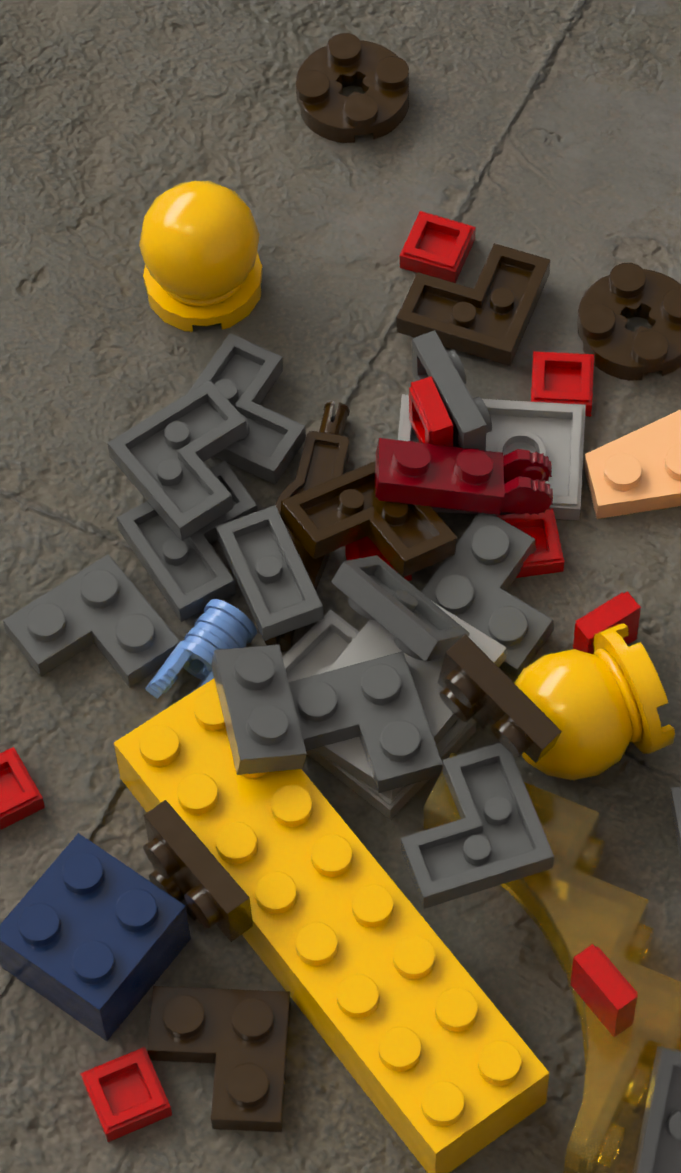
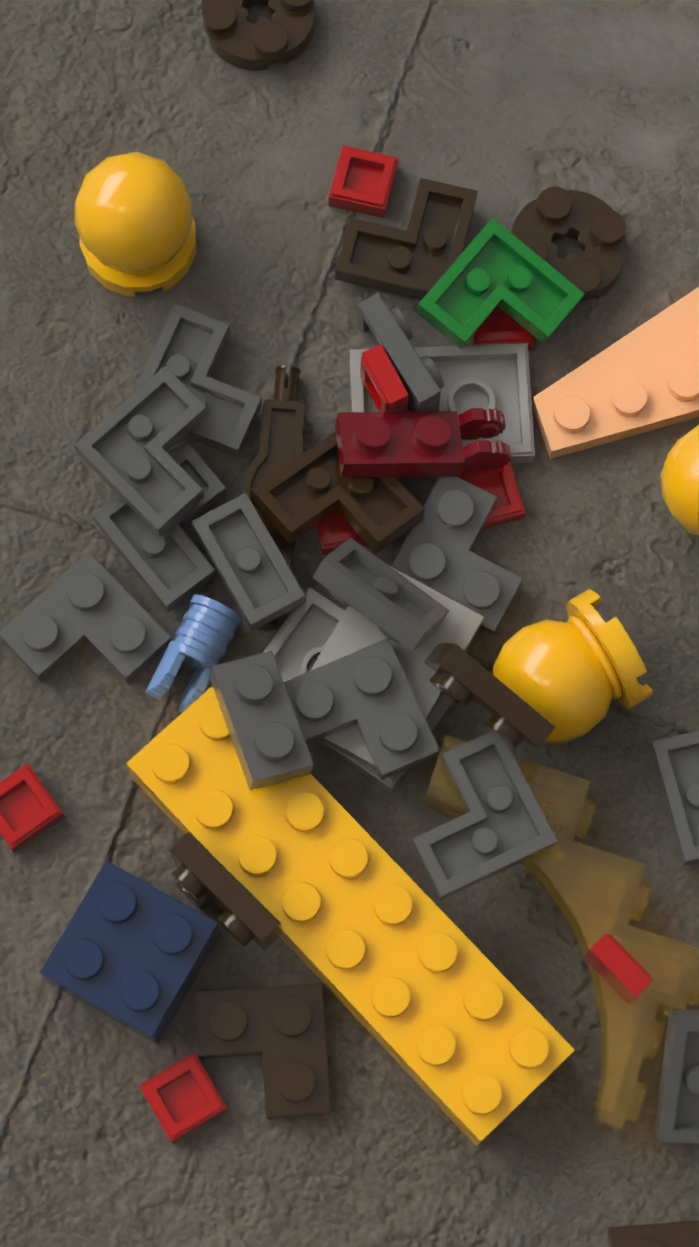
camera: 10 degrees left, 15 degrees up
(563, 331) = (499, 273): none -> green plate
(615, 611) = (578, 577): red tile -> none

